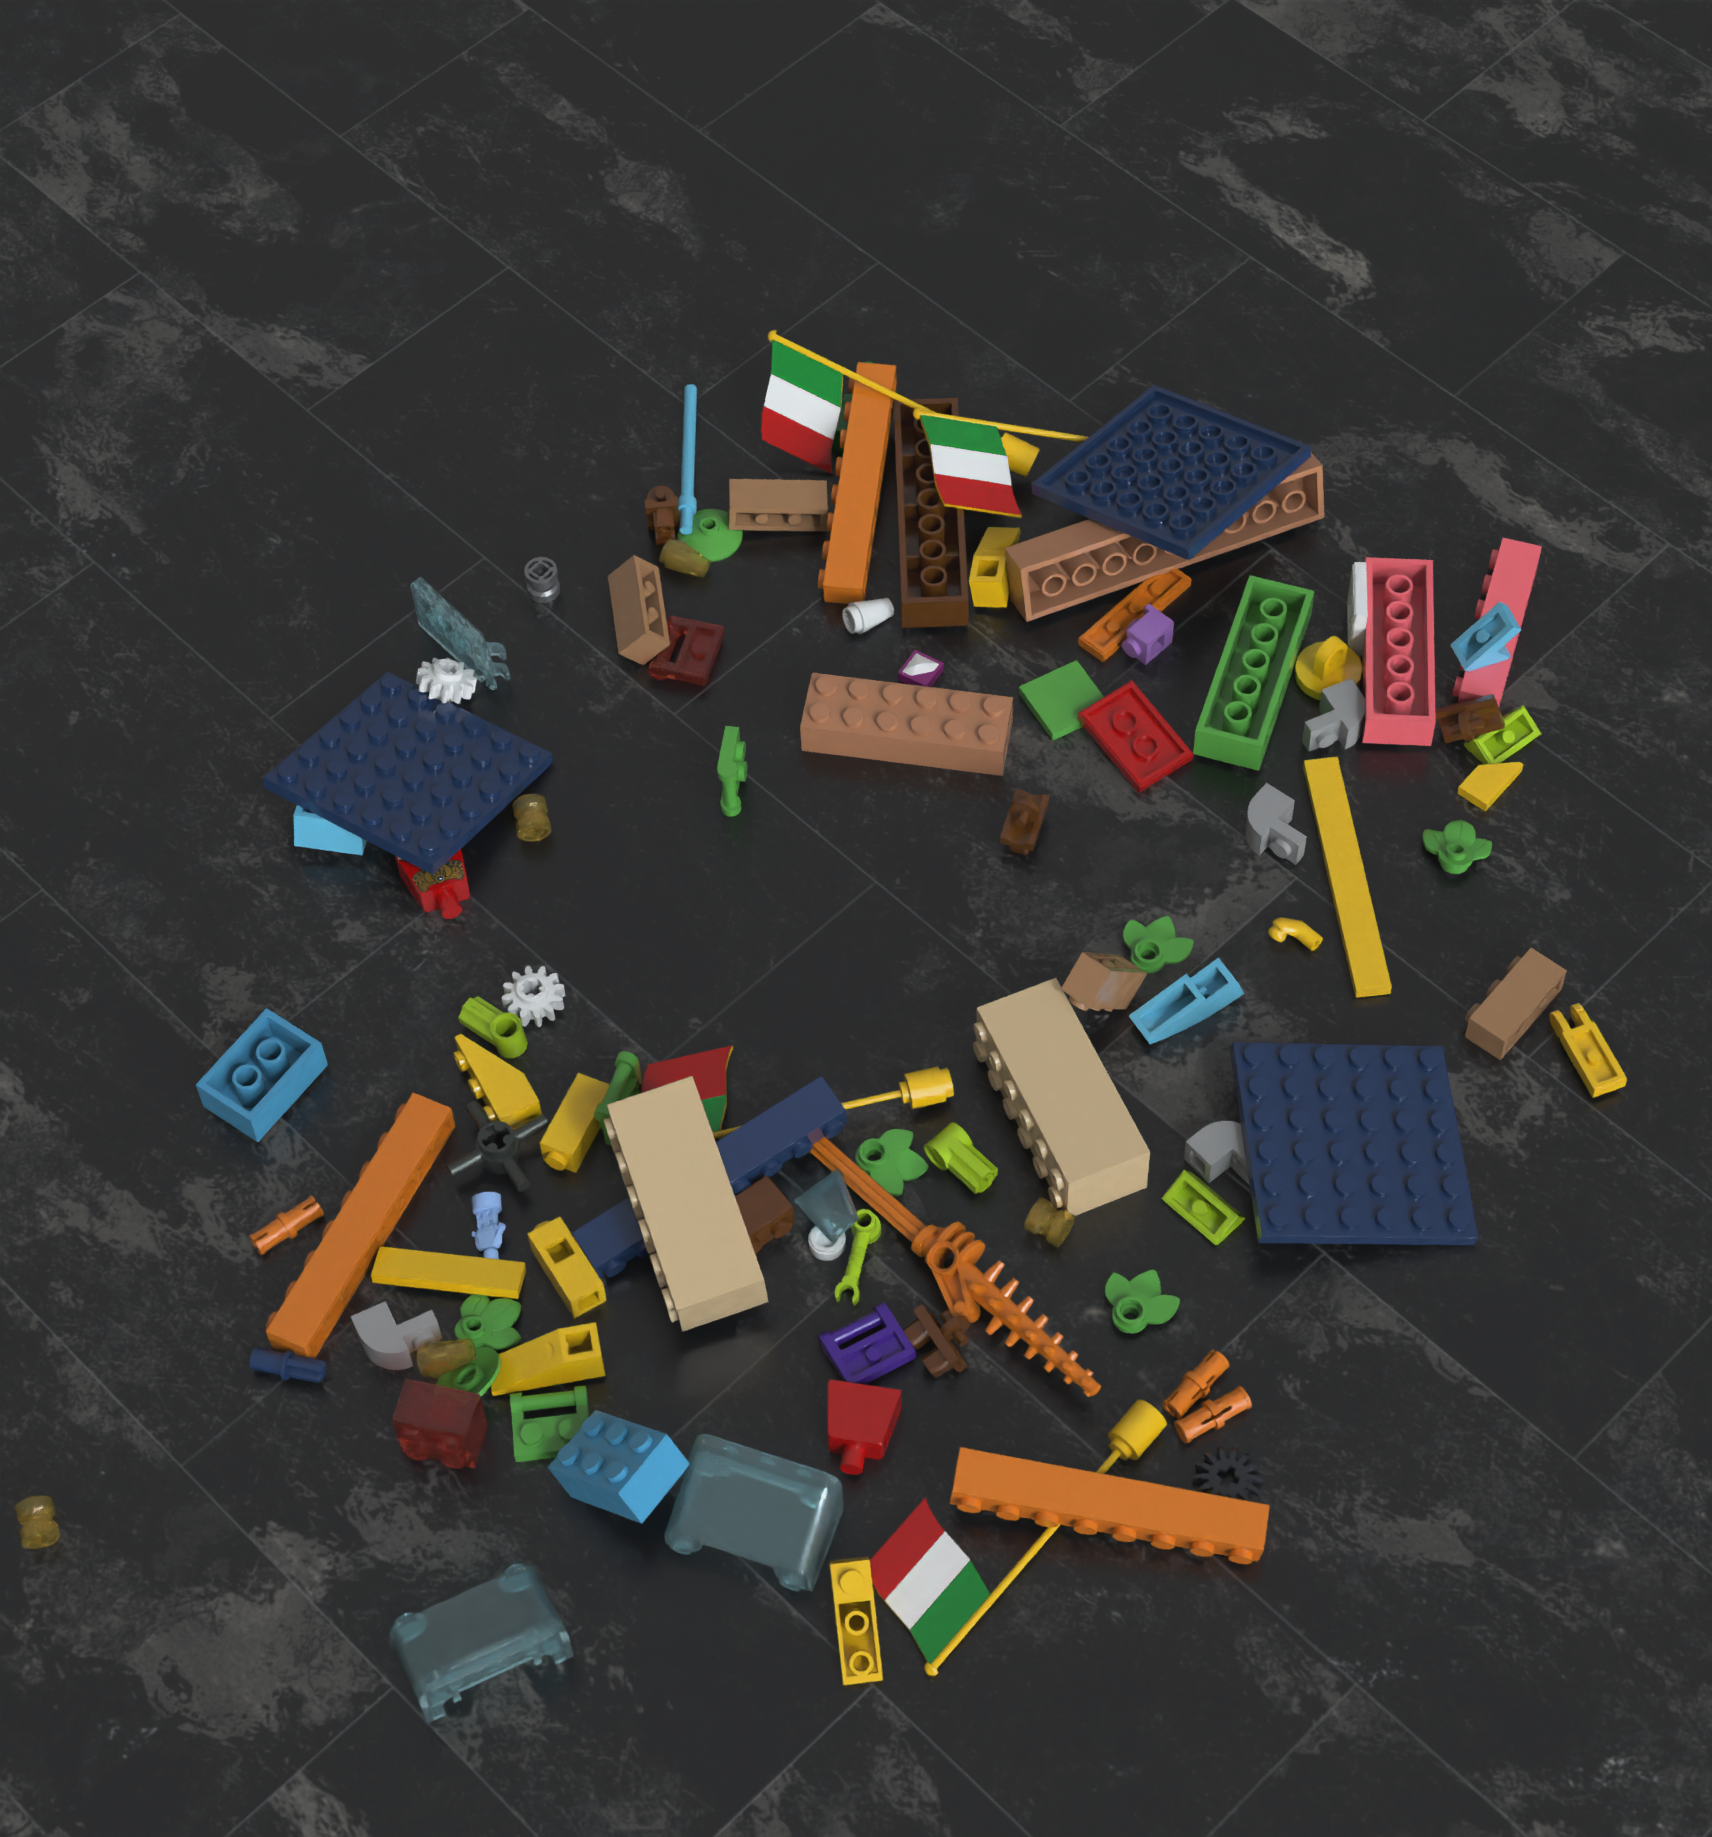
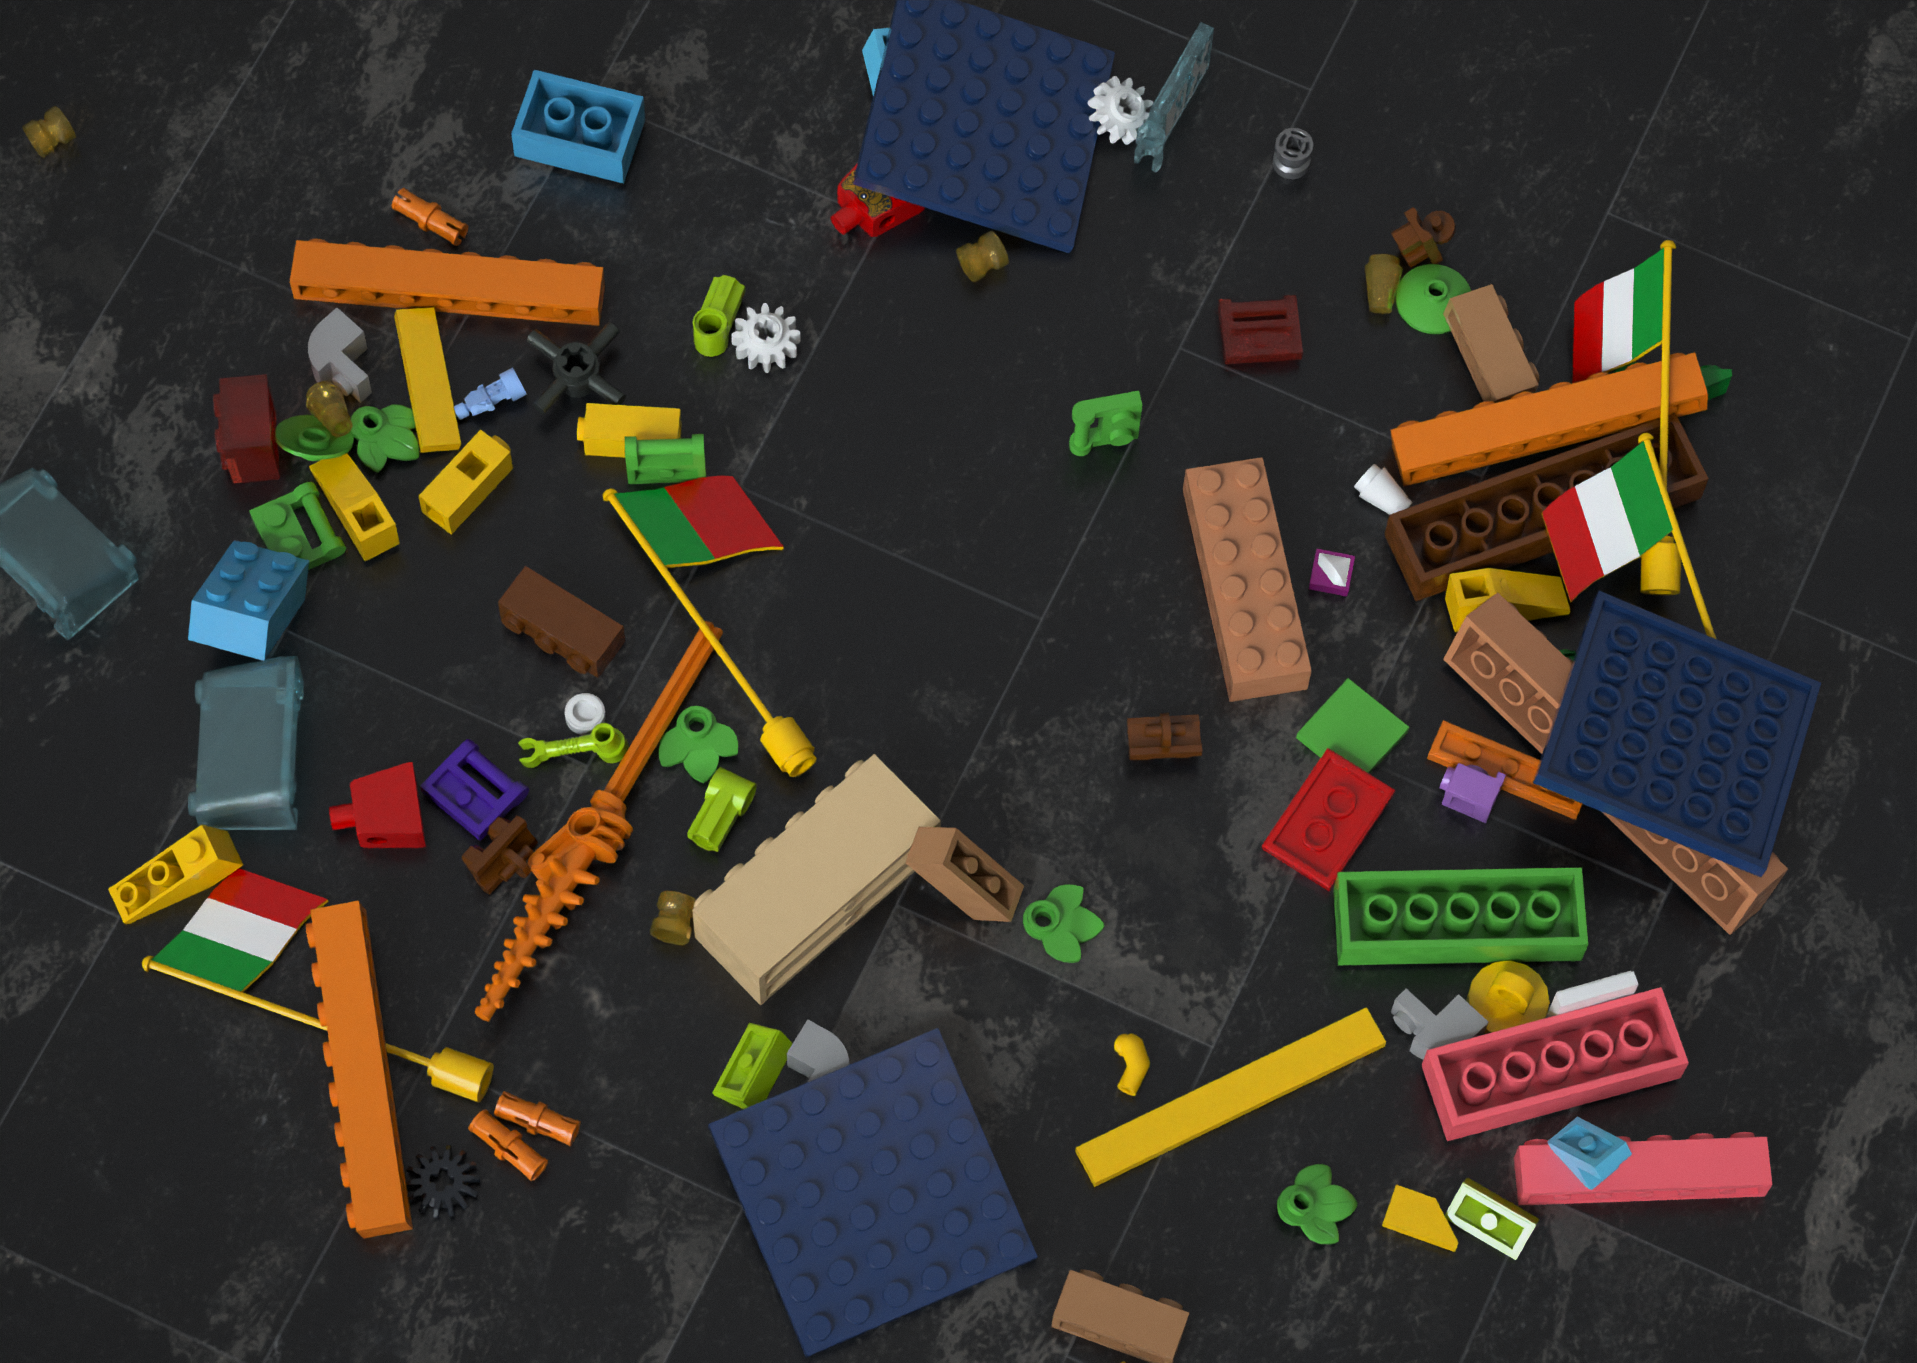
camera: 65 degrees right, 10 degrees up
(287, 1365) = (279, 276): dark blue axle -> none
(499, 1084) = (644, 350): yellow slope -> none
(638, 610) = (1285, 260): medium nougat brick -> none
(685, 1204) = (537, 553): tan brick -> none
(687, 502) = (1458, 258): medium azure bar -> none
(747, 1155) = (604, 576): dark blue brick -> none
(829, 1206) = (611, 695): clear light blue slope -> none
(1139, 1297) = (622, 1037): bright green plate -> none
(1187, 1002) = (996, 976): medium azure slope -> none
(1268, 825) = (1262, 987): light grey brick -> none
(1470, 719) = (1486, 1168): reddish brown hips -> none

